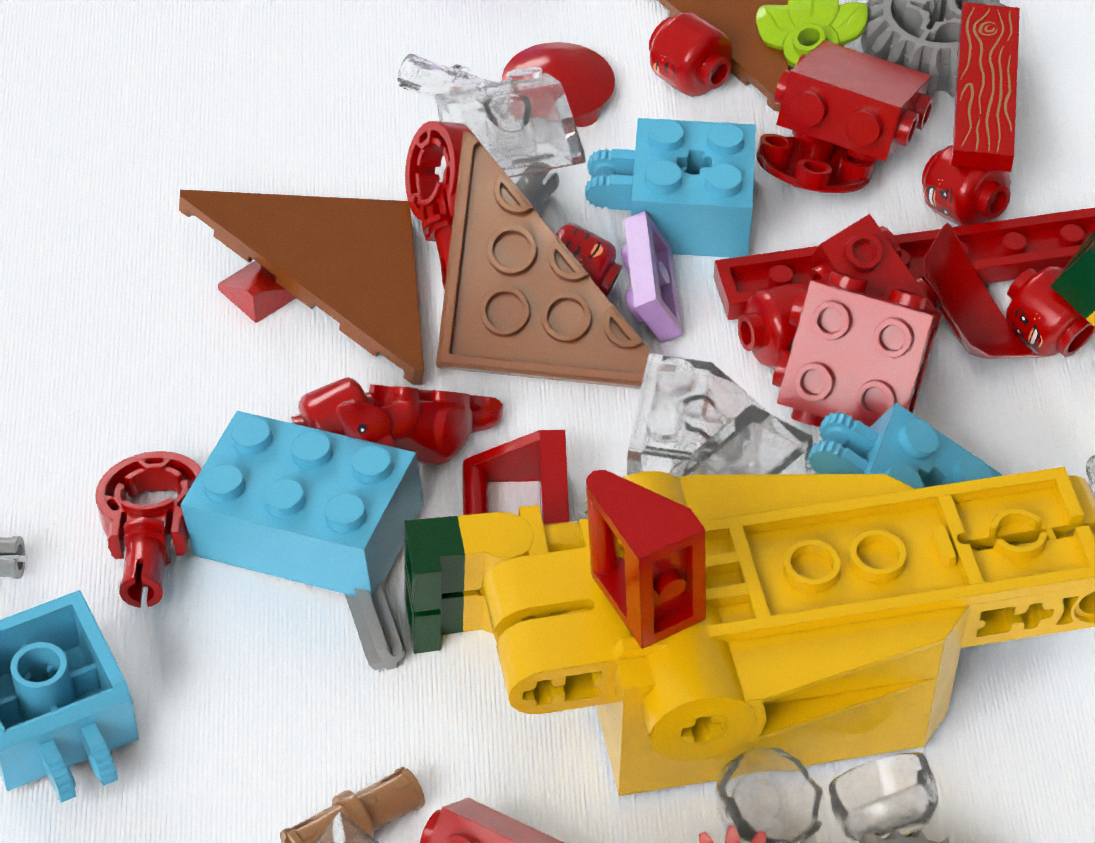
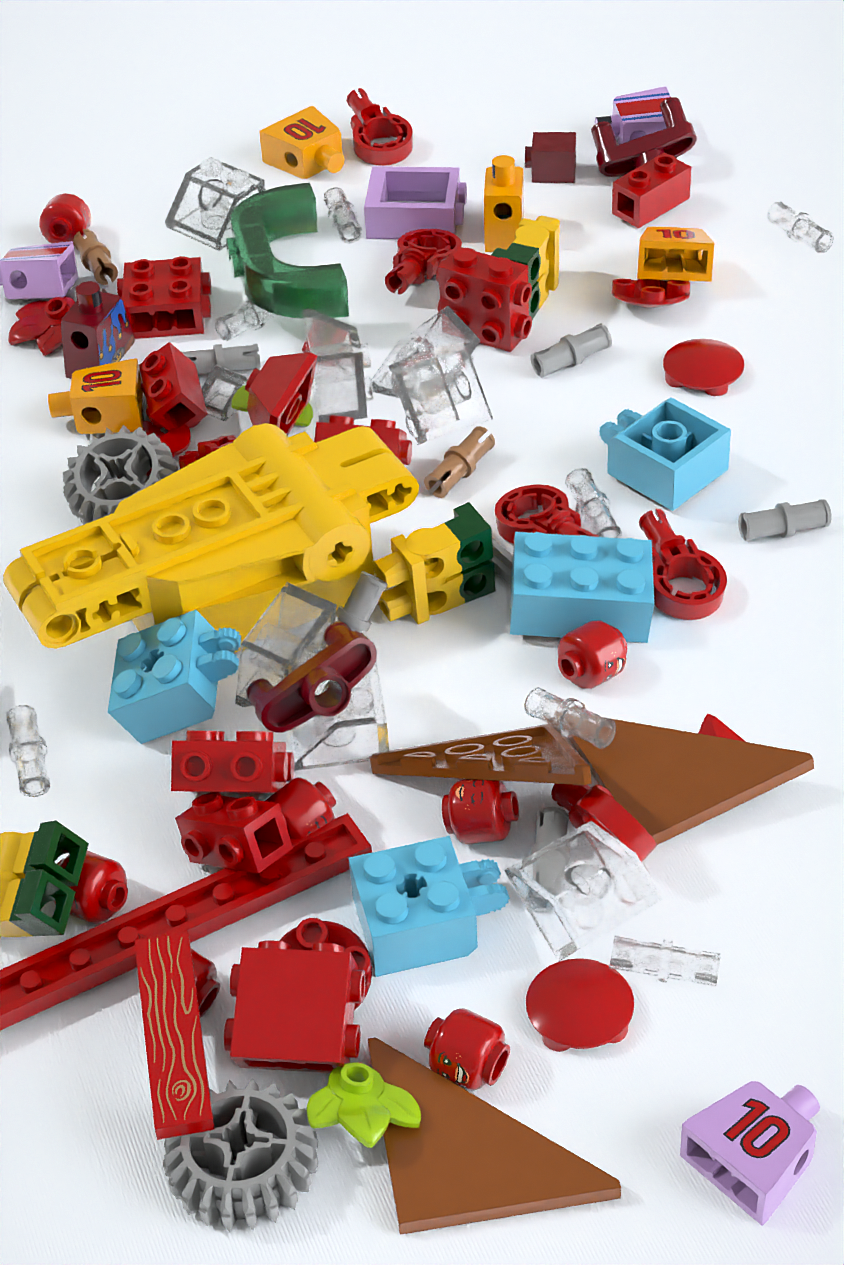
camera: 165 degrees right, 5 degrees down
(201, 666) = (592, 504): none -> clear pin
(280, 644) = (554, 519): none -> red pin
(419, 328) = (570, 717): none -> clear pin
(420, 420) = (530, 659): red animal -> none
(526, 459) = (438, 669): red tile -> none
(653, 278) = (412, 811): lavender plate -> none
(664, 566) = (289, 424): red tile -> none
(720, 372) = (294, 700): none -> dark red connector
(967, 303) = (131, 837): red piece -> none

